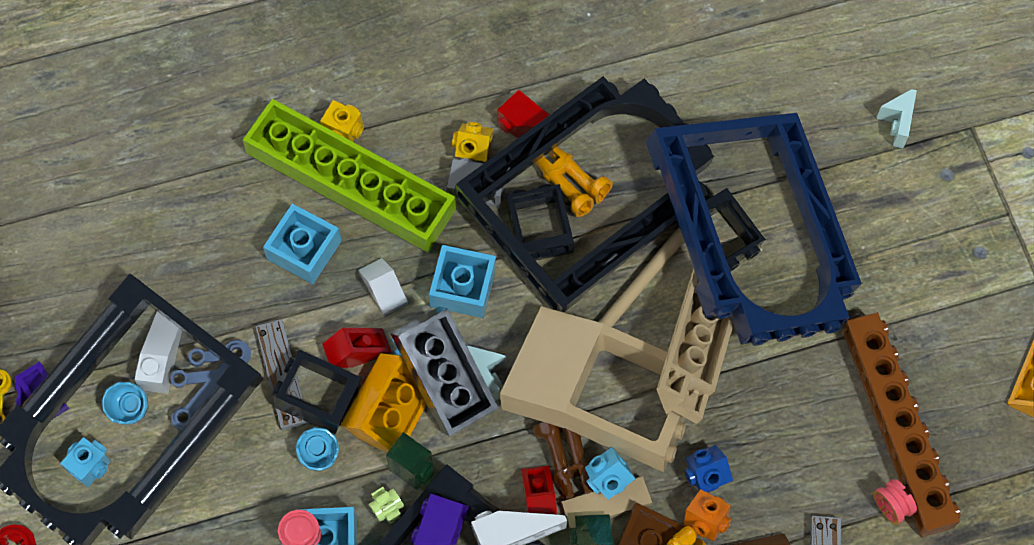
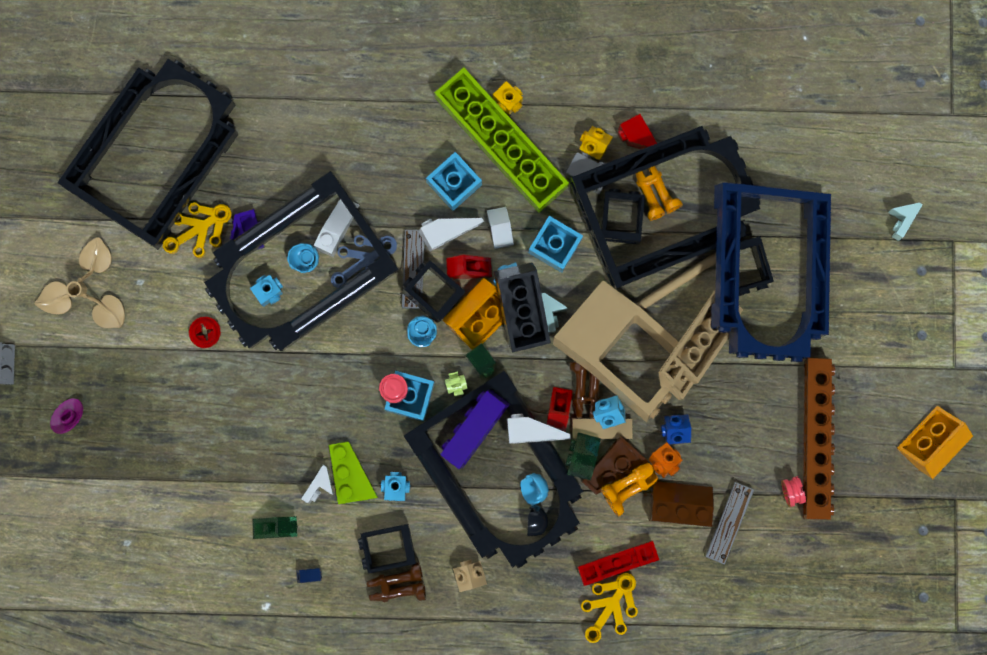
camera: 15 degrees right, 15 degrees up
(311, 307) = (444, 230): none -> white slope

